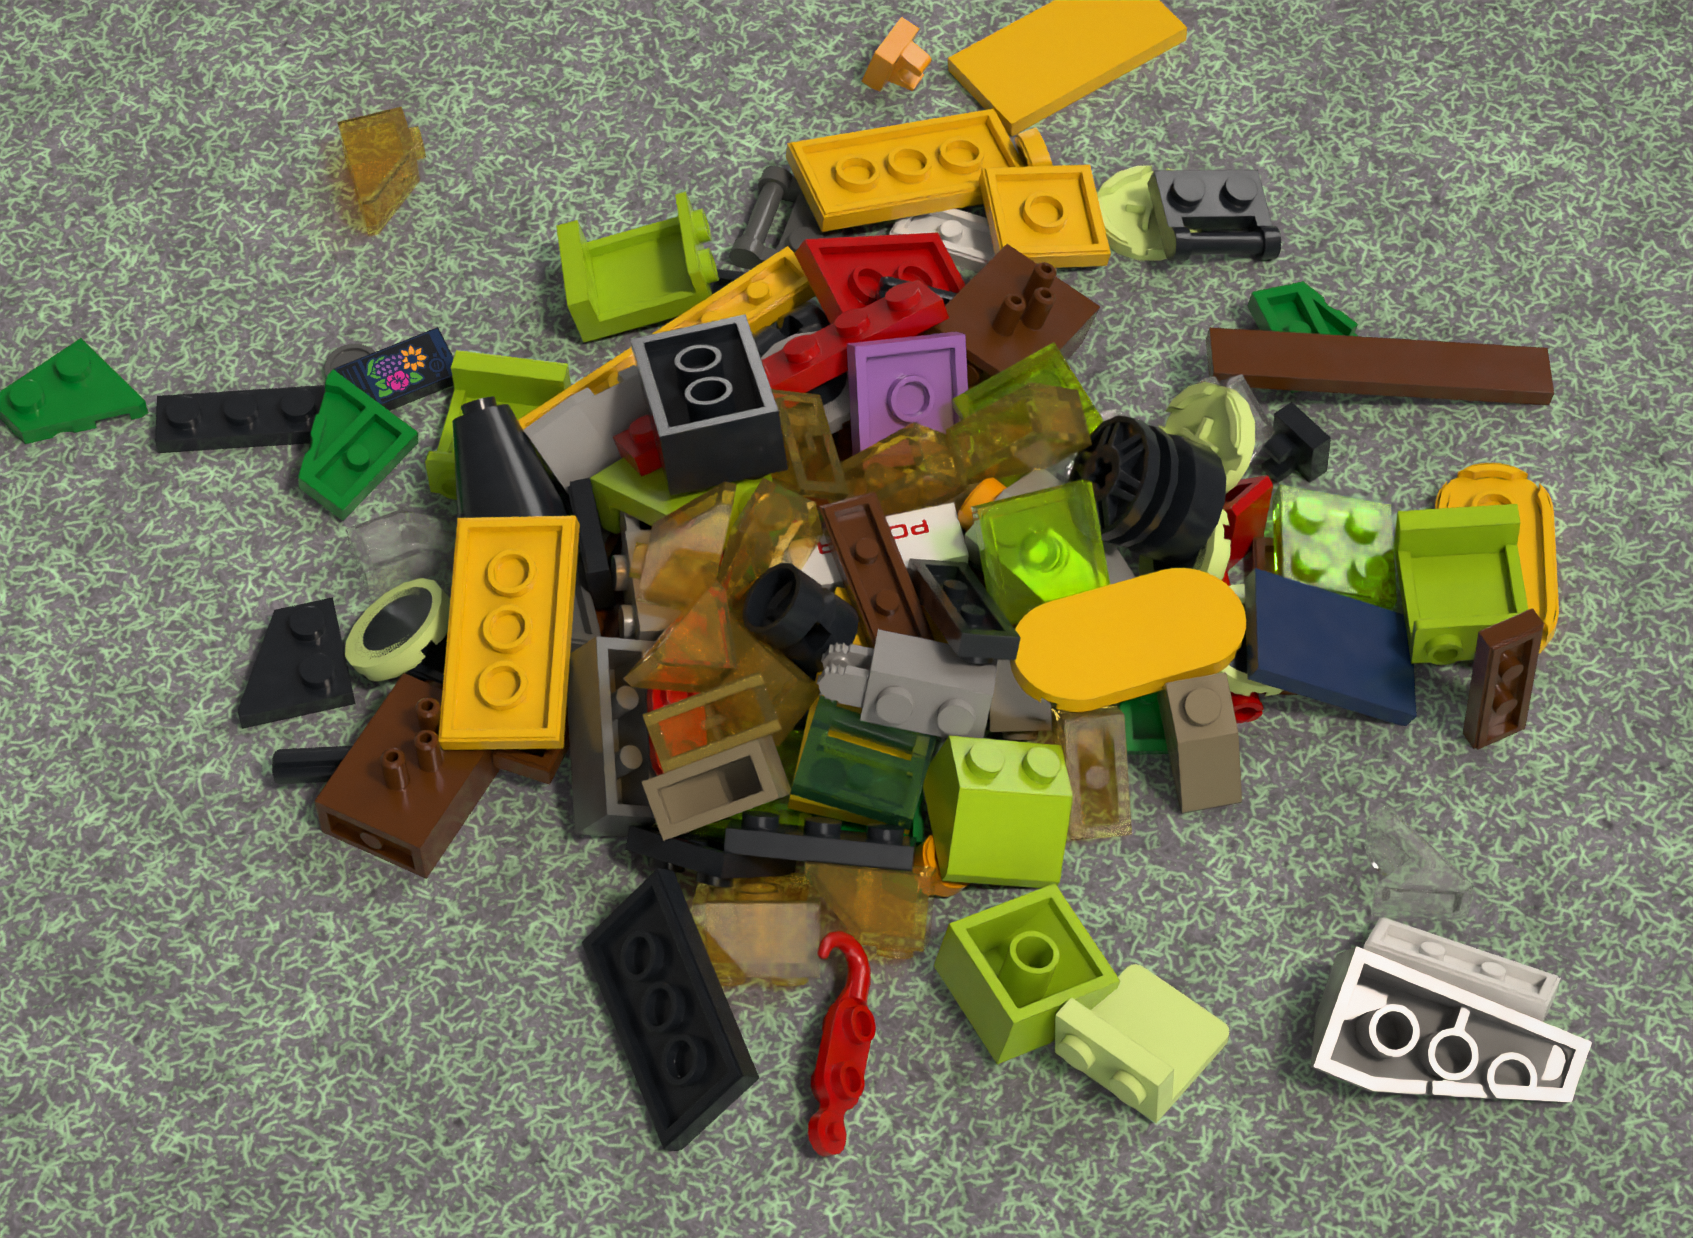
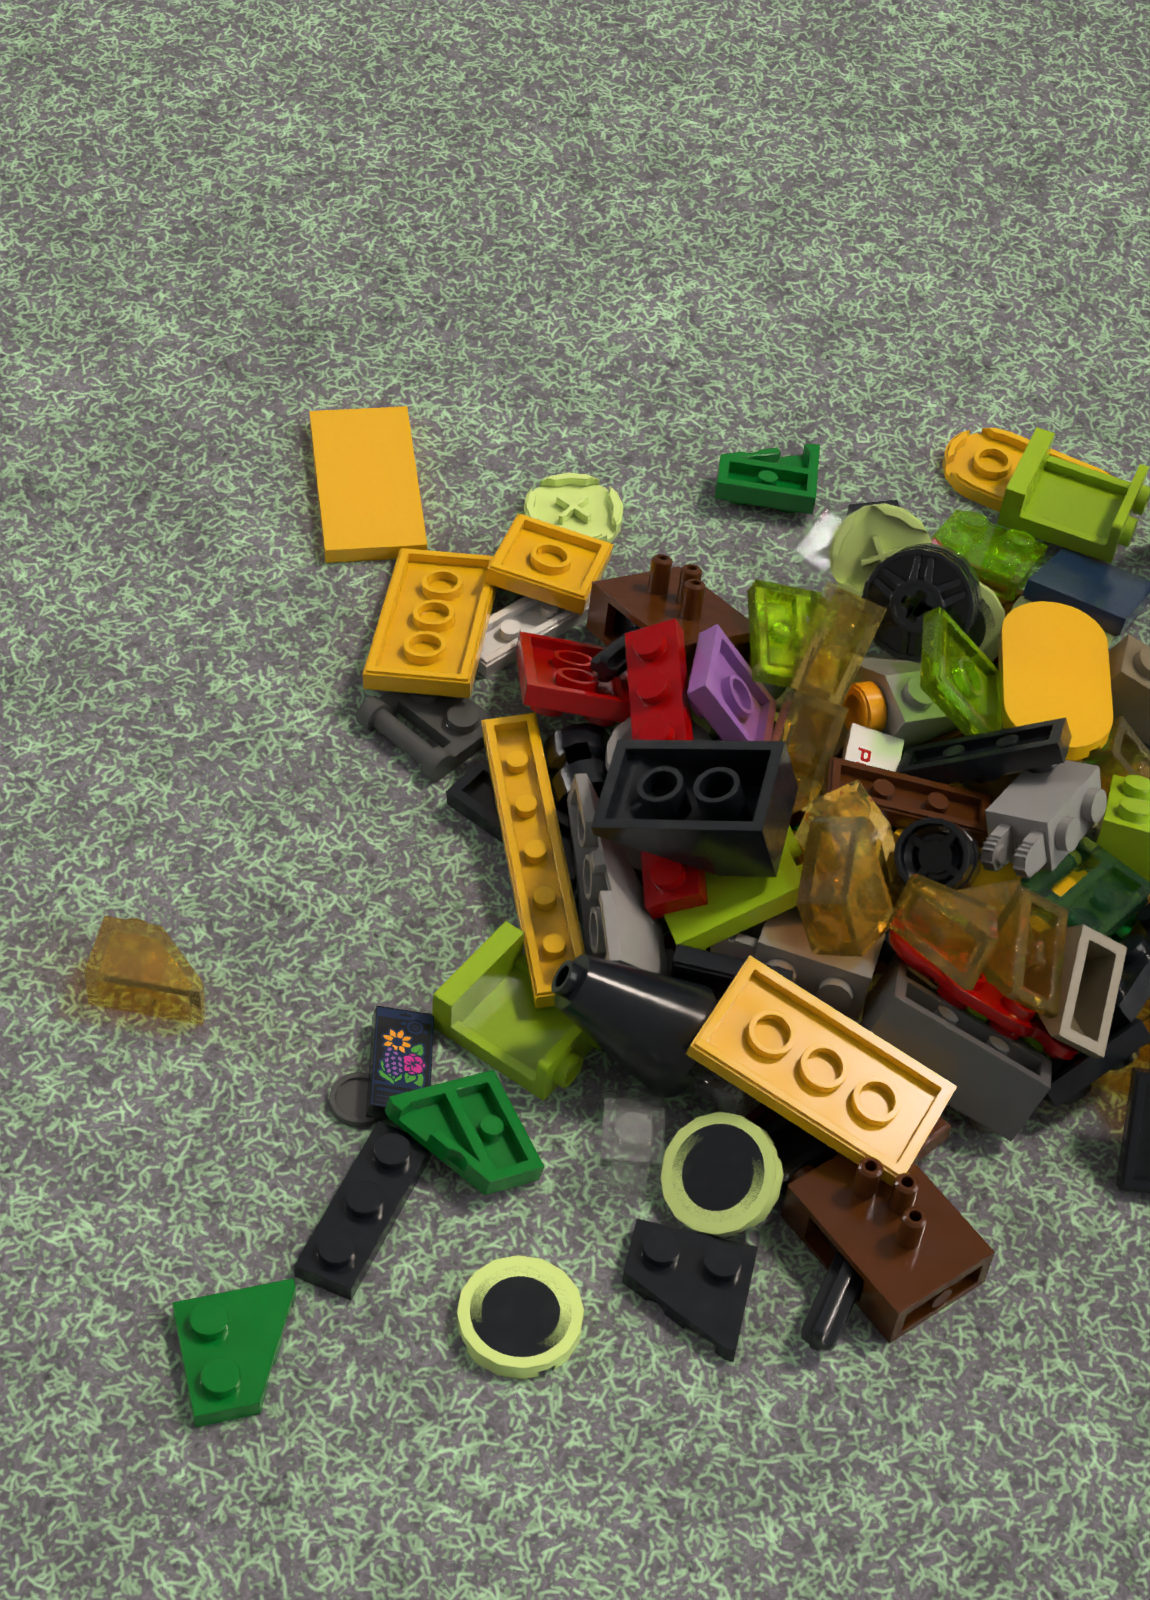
camera: 70 degrees left, 5 degrees down
(198, 563) = (520, 1316): none -> tile
(637, 273) = (420, 834): lime panel -> none
(897, 59) = (301, 578): light orange tile -> none
(1032, 148) = (475, 539): yellow tile -> none
(1212, 201) = (602, 466): plate -> none
(1381, 366) = (830, 454): reddish brown tile -> none

